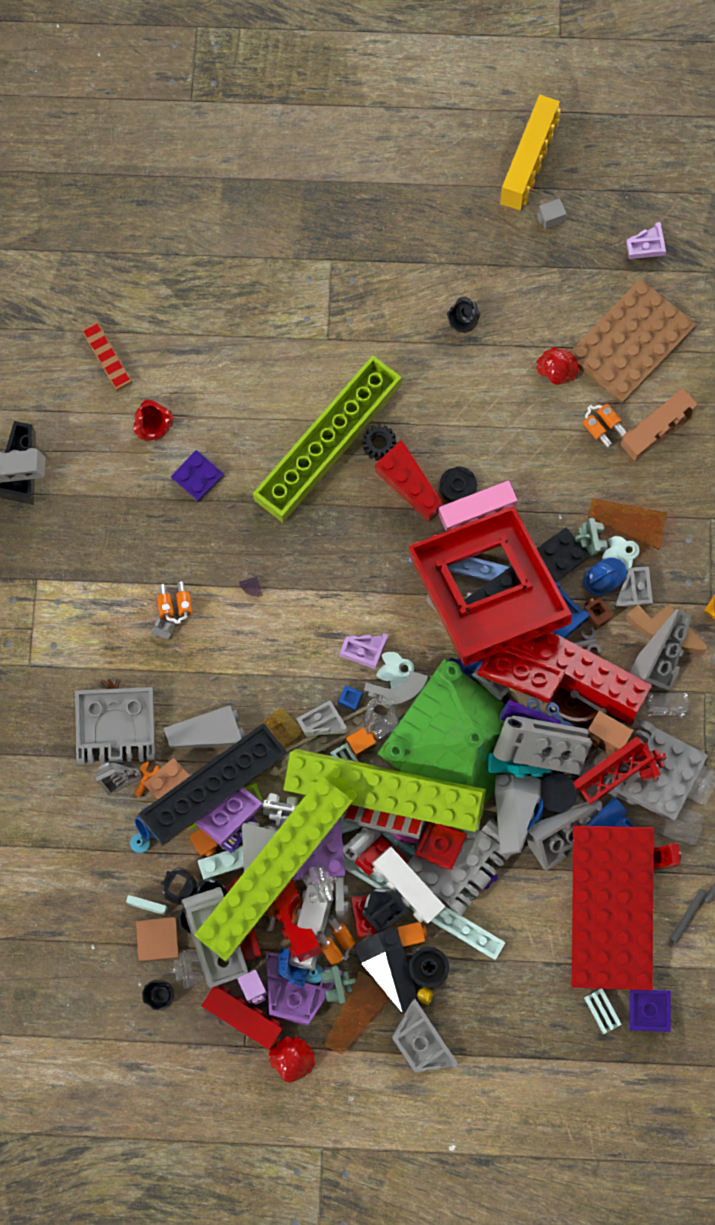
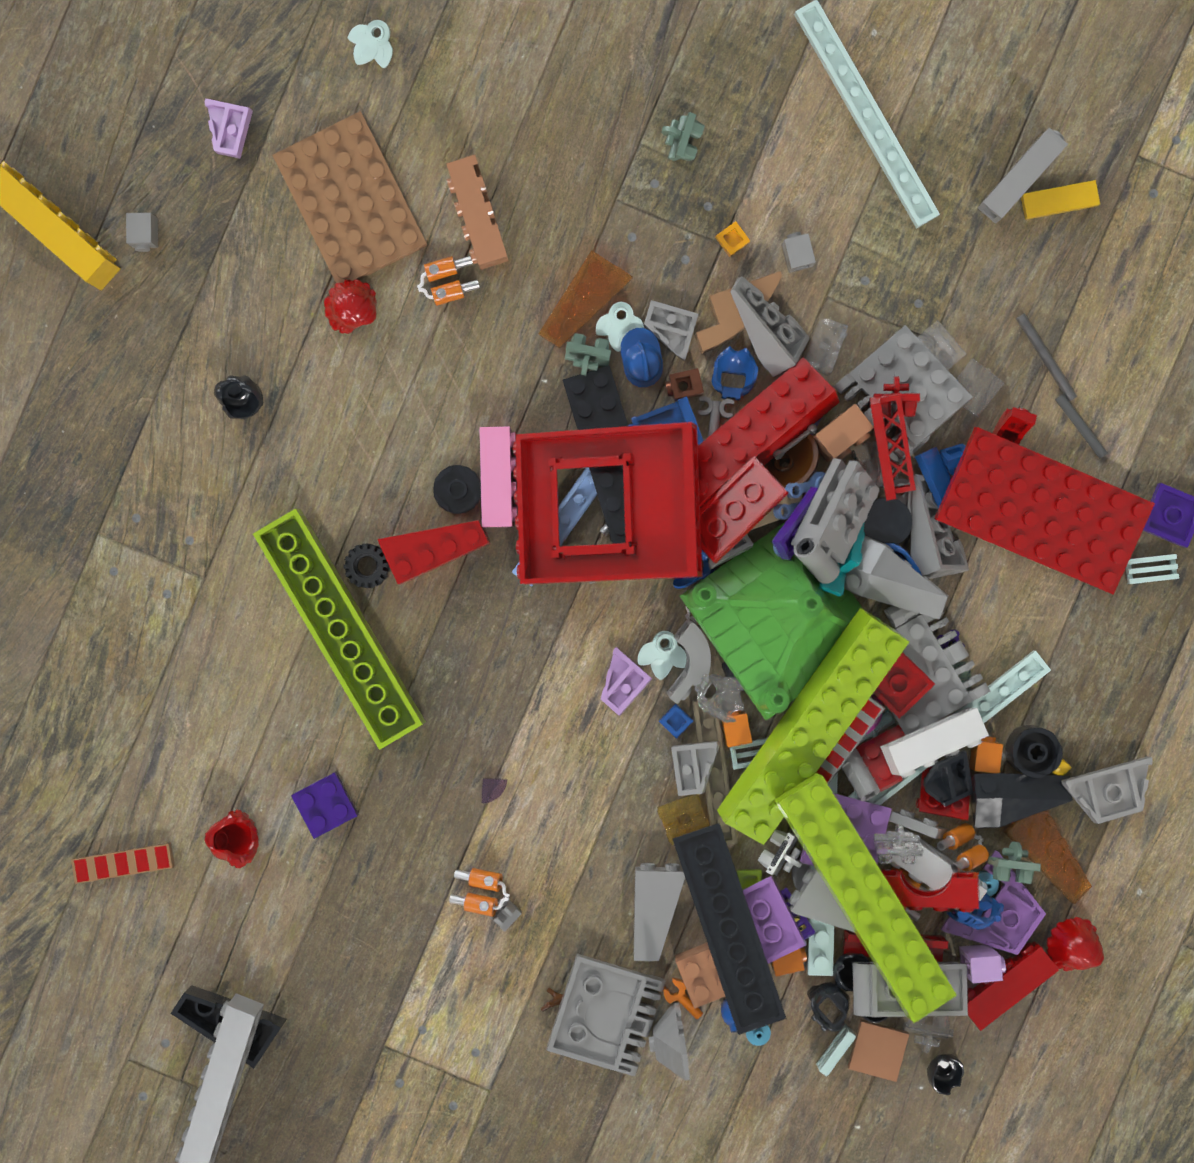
camera: 75 degrees left, 15 degrees up
(628, 643) = (736, 363): none -> blue helmet

